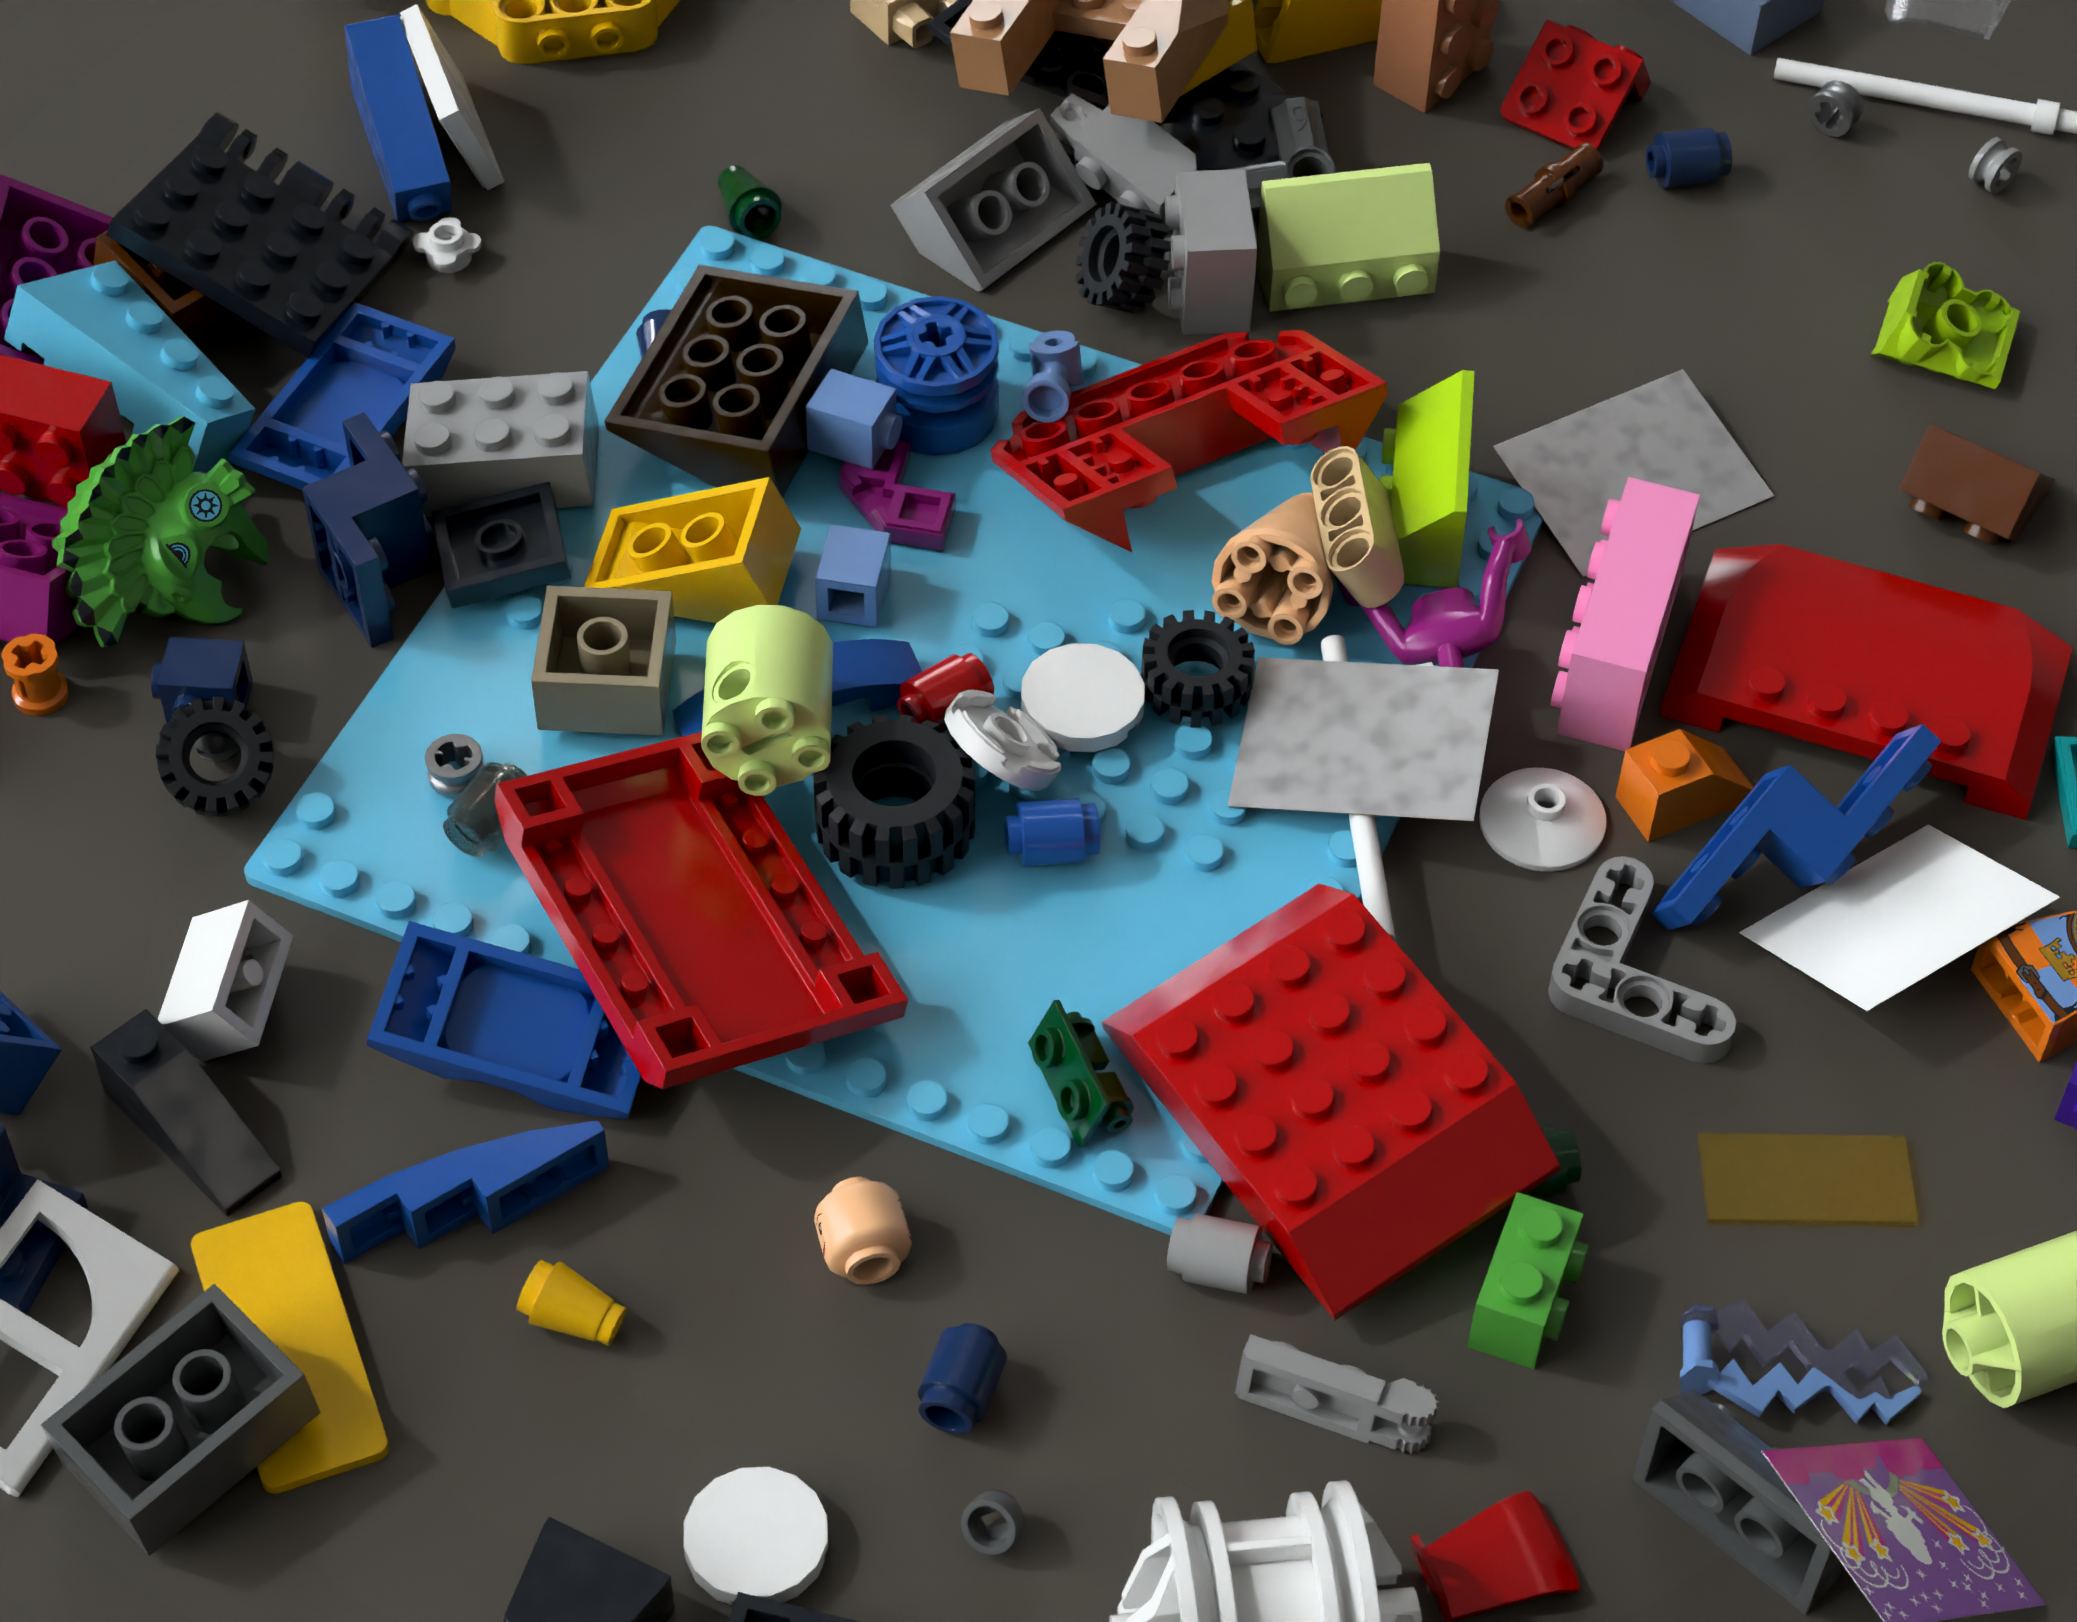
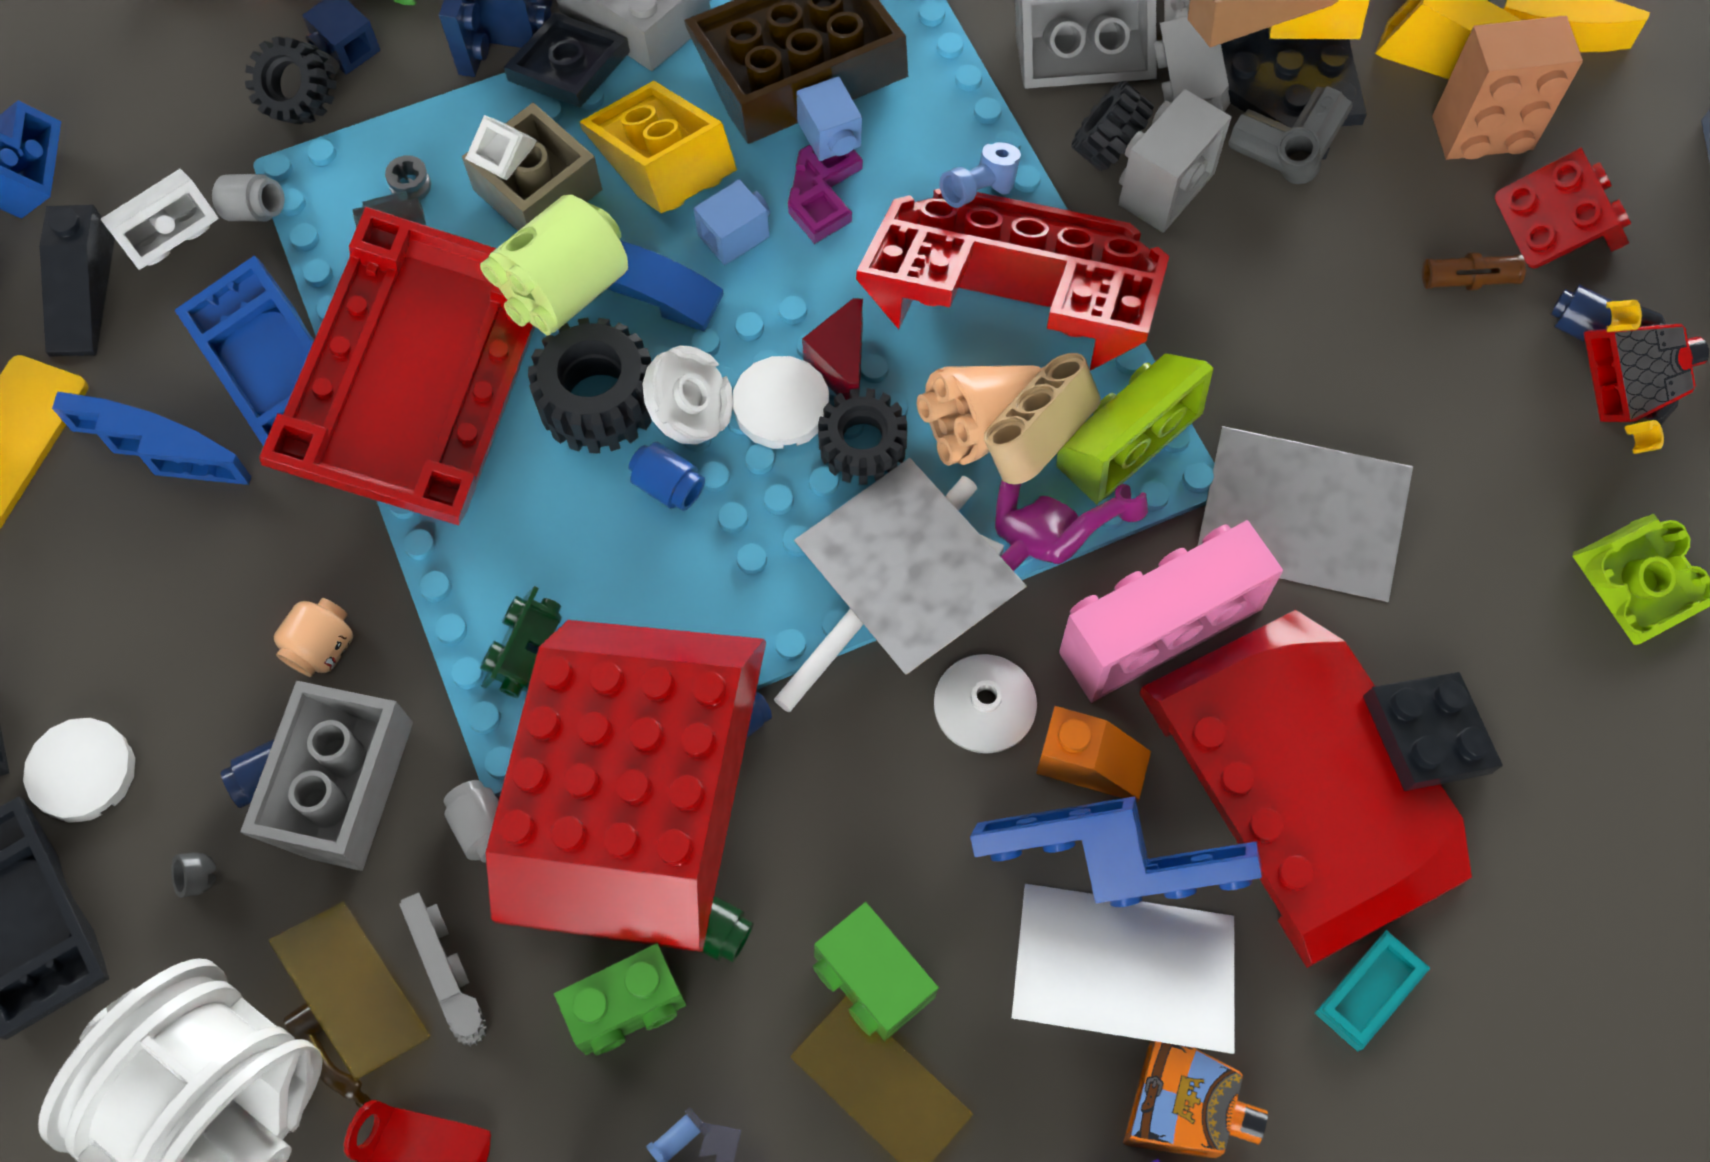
camera: 45 degrees right, 15 degrees up
(301, 894) = (247, 197): none -> light grey brick
(569, 1304) = (130, 549): yellow cone -> none
(570, 642) = (499, 147): none -> white slope
(935, 688) = (698, 331): red brick -> none
(943, 371) = (909, 124): blue wheel -> none
(1045, 1311) = (328, 775): none -> light grey slope
(1100, 608) = (836, 348): none -> dark red slope
(1249, 1480) = (349, 990): none -> clear yellow piece
(1347, 237) = (1274, 212): yellowish green slope -> none
(1605, 969) = (909, 834): light grey beam -> none
(1712, 1079) = (873, 973): none -> bright green brick
(1781, 168) = (1642, 370): none -> torso
(1924, 559) = (1432, 731): none -> black plate
(1974, 484) = (1533, 704): reddish brown slope -> none

